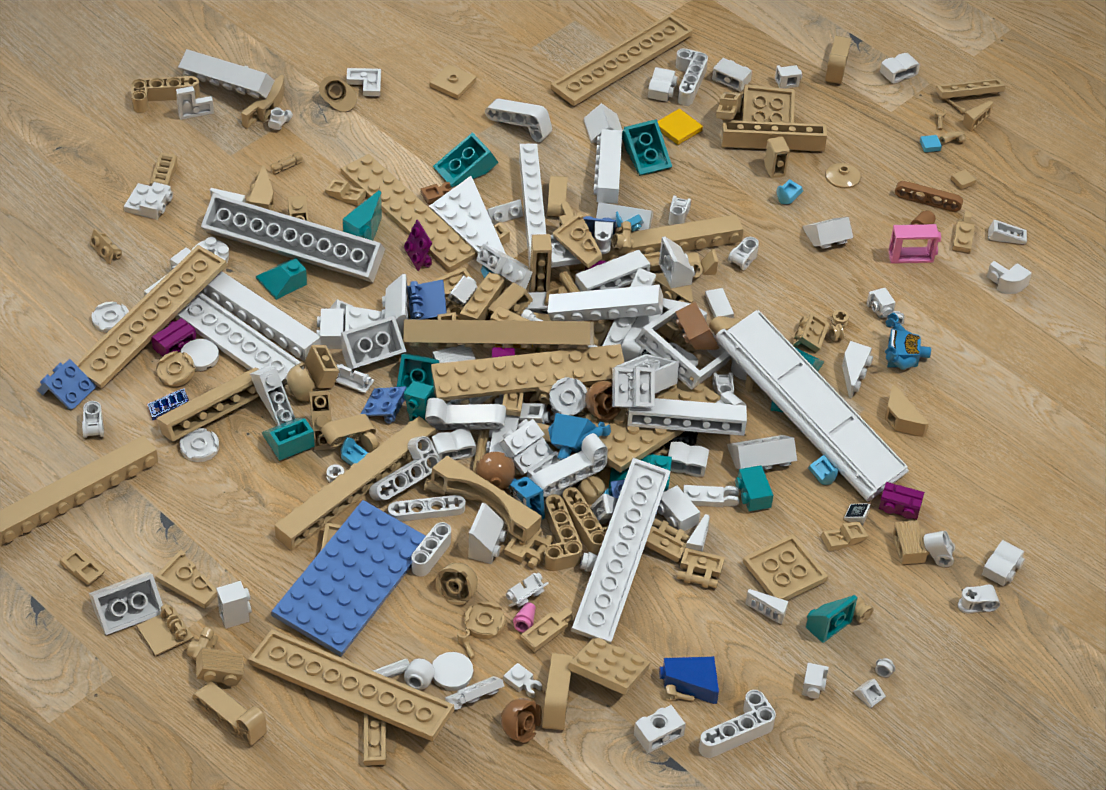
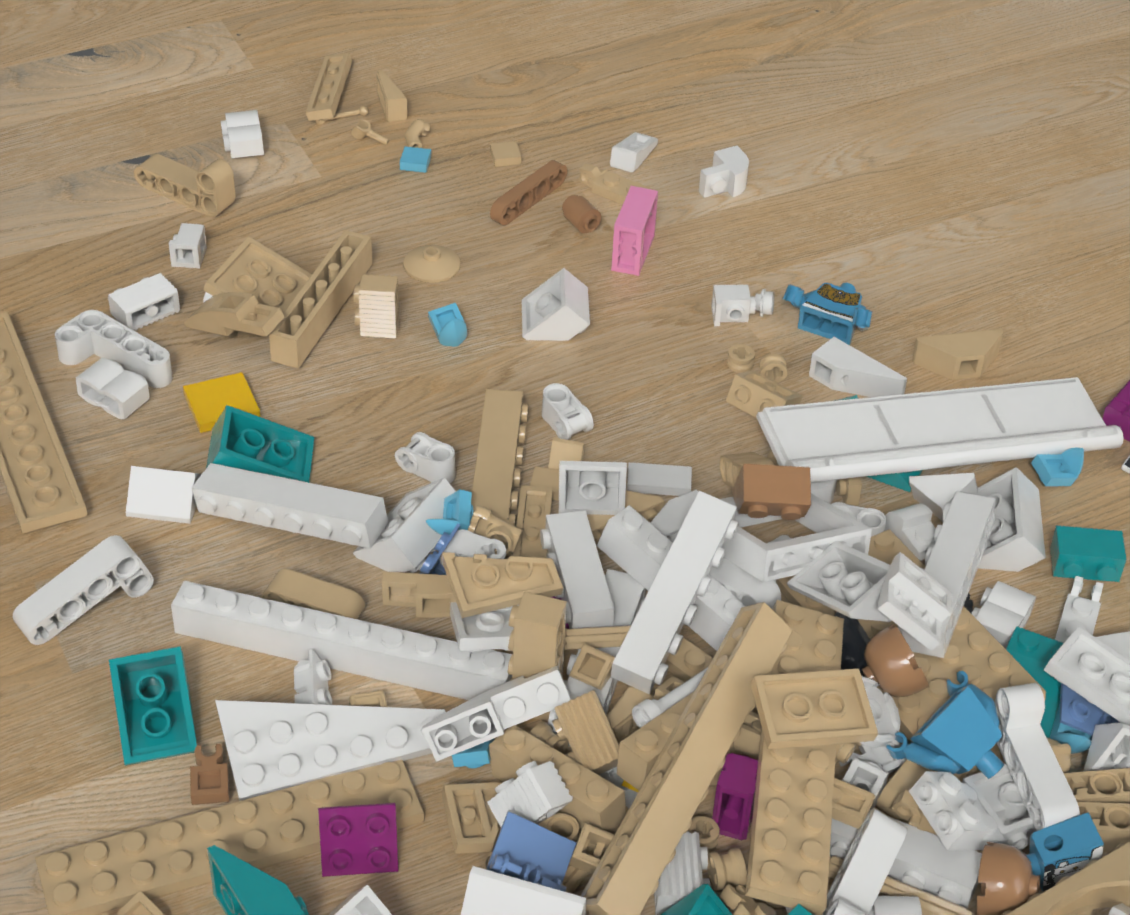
camera: 70 degrees left, 5 degrees down
(543, 362) = (813, 708): none -> tan plate
(767, 421) = (940, 489): none -> white slope

